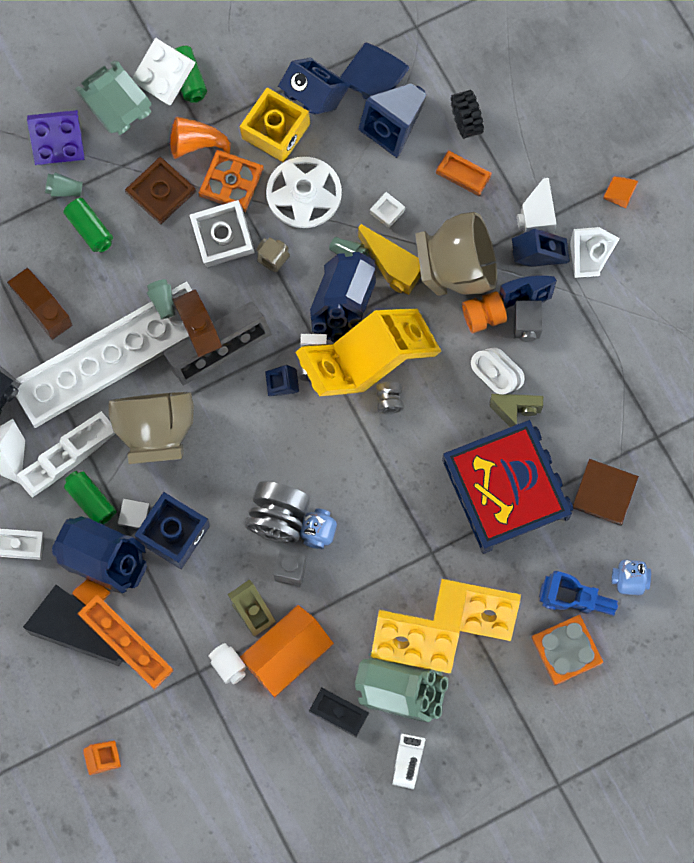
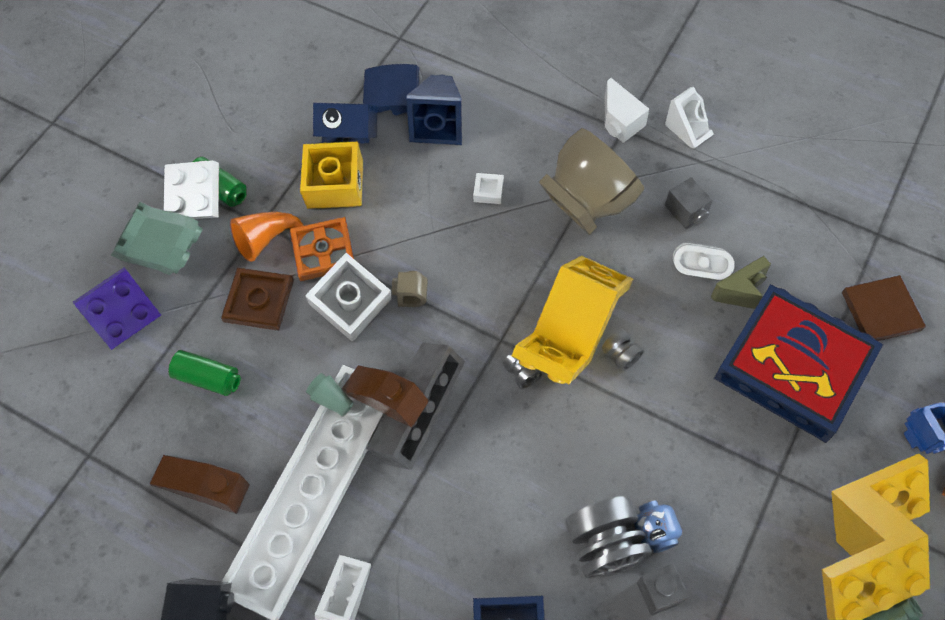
camera: 30 degrees left, 10 degrees down
(60, 185) = (153, 352): sand green cone -> none
(152, 425) = (410, 532): dark tan plate -> none
(282, 381) = (504, 402): dark blue slope -> none
(304, 192) = (399, 219): white wheel -> none
(313, 339) = (506, 344): white plate -> none
(342, 295) = (509, 283): dark blue brick -> none
(345, 246) = (481, 243): sand green cone -> none
(396, 264) = (528, 227): yellow slope -> none
(463, 173) = (531, 122): orange tile -> none
(467, 114) = (500, 69): black tyre -> none
(483, 312) = (646, 219): orange wheel -> none
(528, 289) = (671, 174): dark blue slope -> none
(540, 249) = (647, 140): dark blue slope -> none
(620, 191) = (674, 59): orange slope -> none

